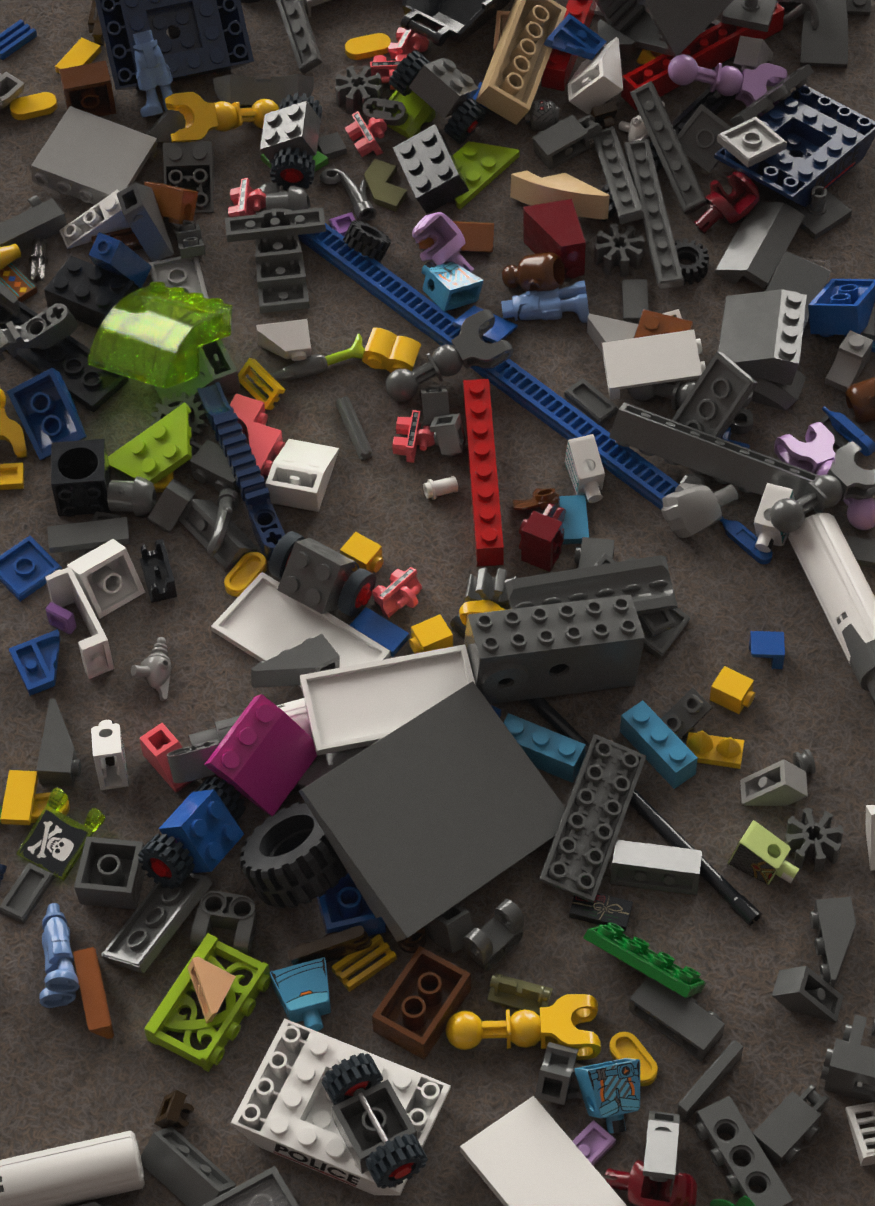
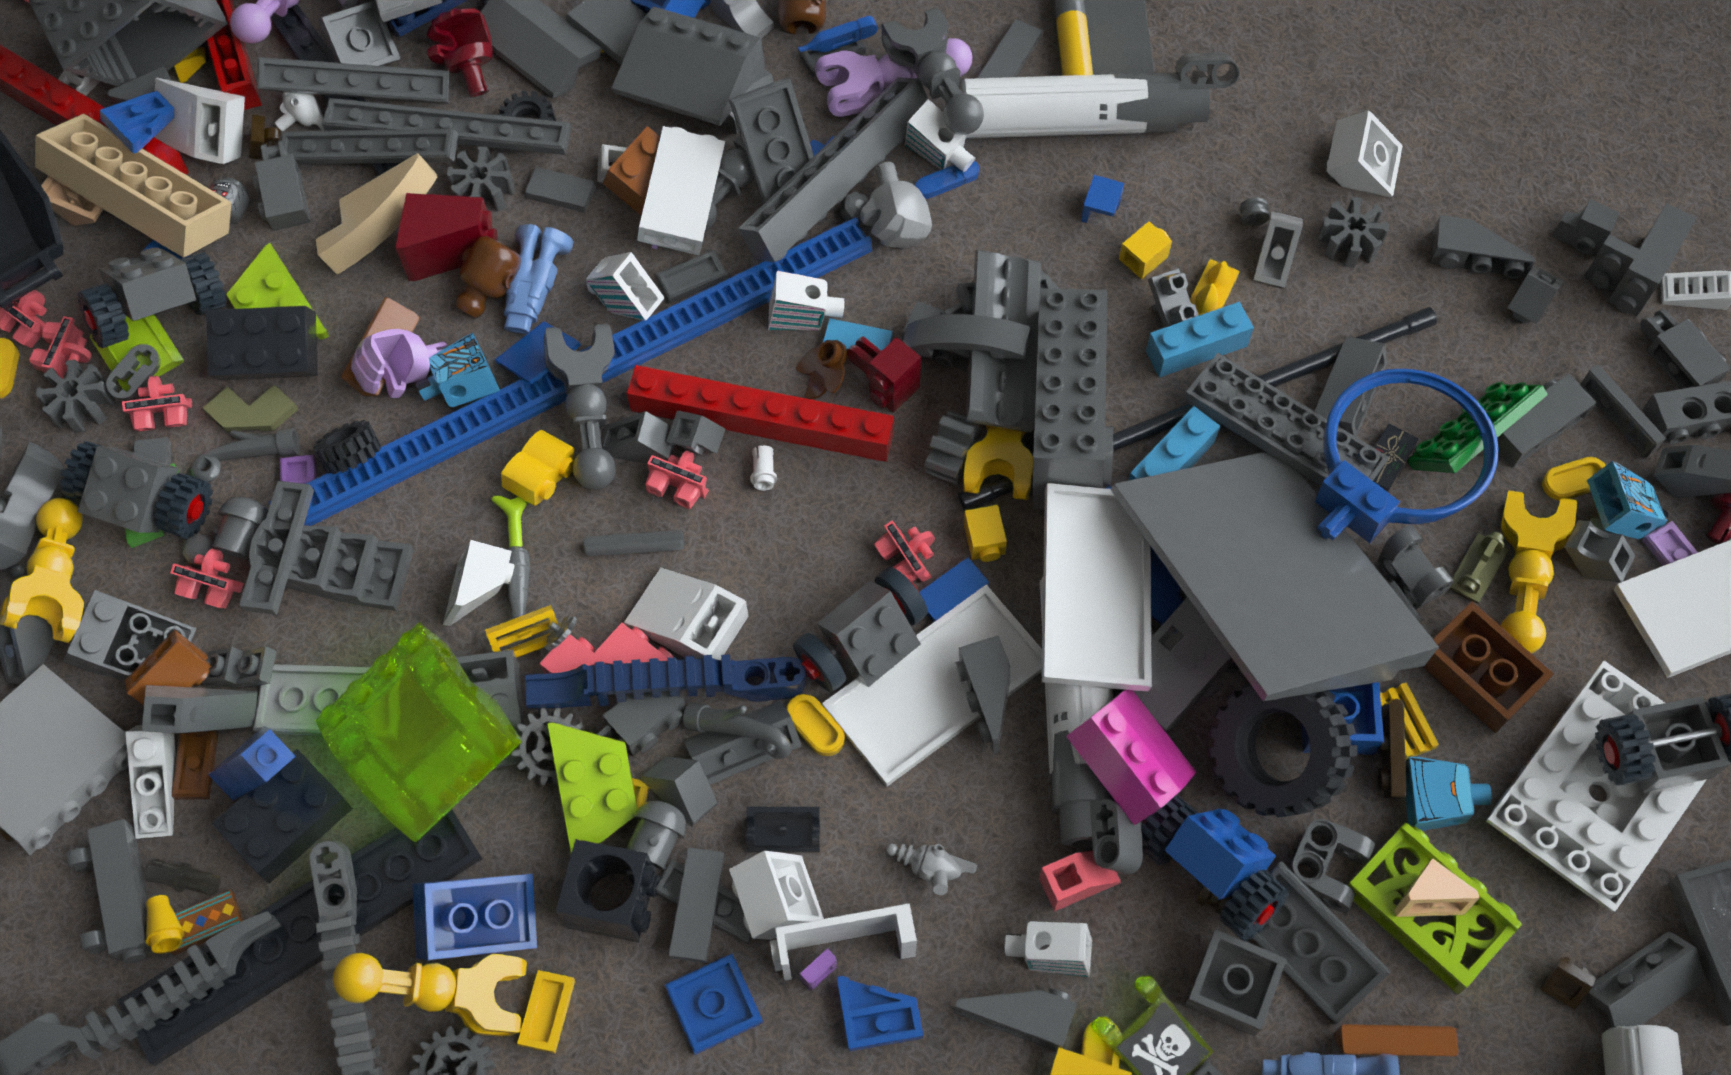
camera: 75 degrees left, 10 degrees up
(262, 397) = (560, 632): none -> dark grey plant
(364, 552) = (839, 579): yellow brick -> none
(531, 854) = (1361, 503): none -> blue brick
(554, 354) = (624, 287): none -> white torso
(578, 568) = (968, 332): none -> dark grey slope
(606, 329) = (610, 225): light grey slope -> none
(763, 855) = (1374, 270): yellowish green torso -> none

